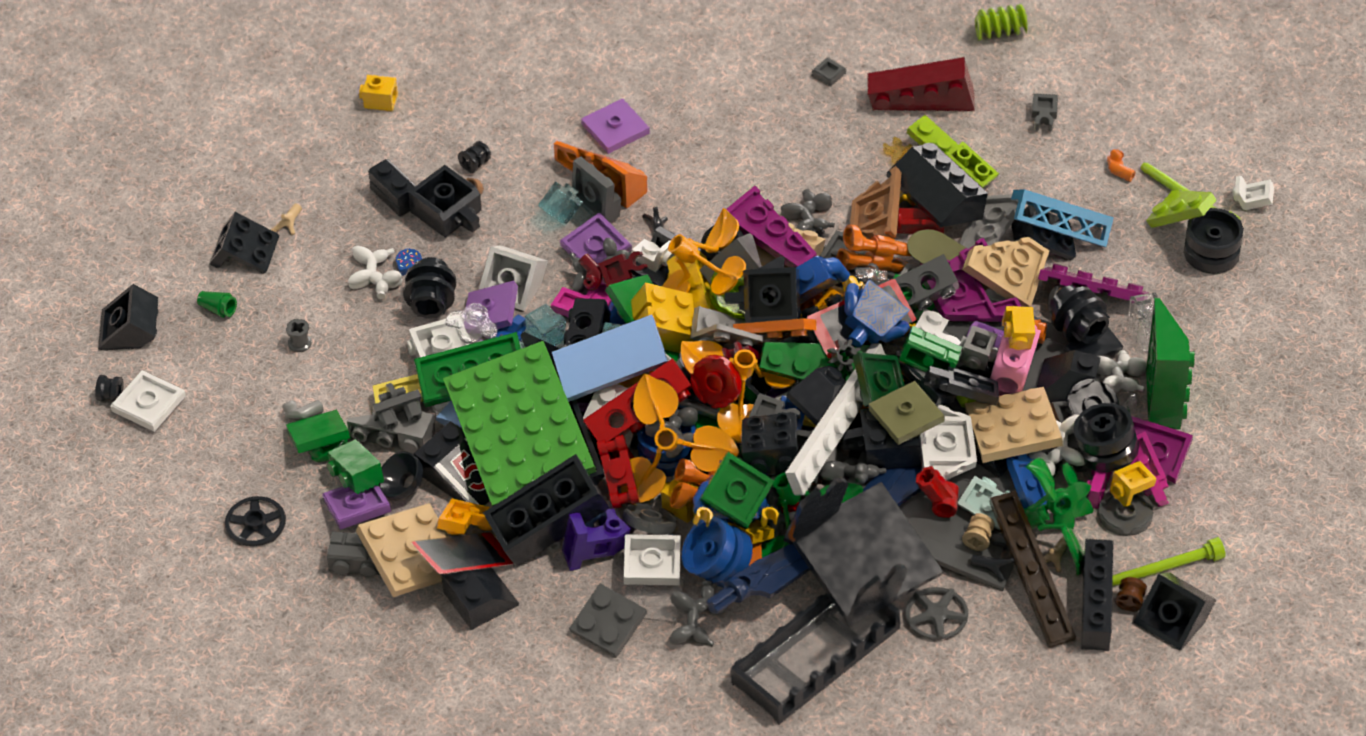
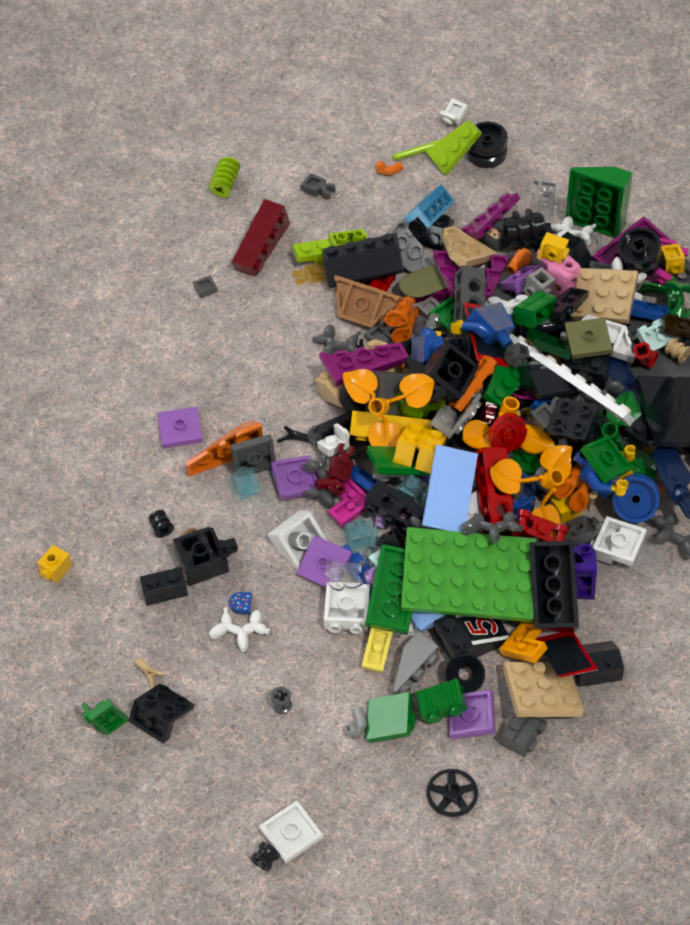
camera: 65 degrees left, 5 degrees up
(129, 320) = (198, 820): black slope -> none
(206, 197) = (105, 716): none -> green bracket
(219, 303) = (212, 749): green cone -> none
(394, 402) = (402, 649): dark grey hips -> none
(429, 287) = (289, 593): black piece -> none
(577, 414) = (475, 525): none -> dark grey piece
(608, 620) = (656, 588): dark grey plate -> none
(1087, 394) = (600, 251): tile -> none

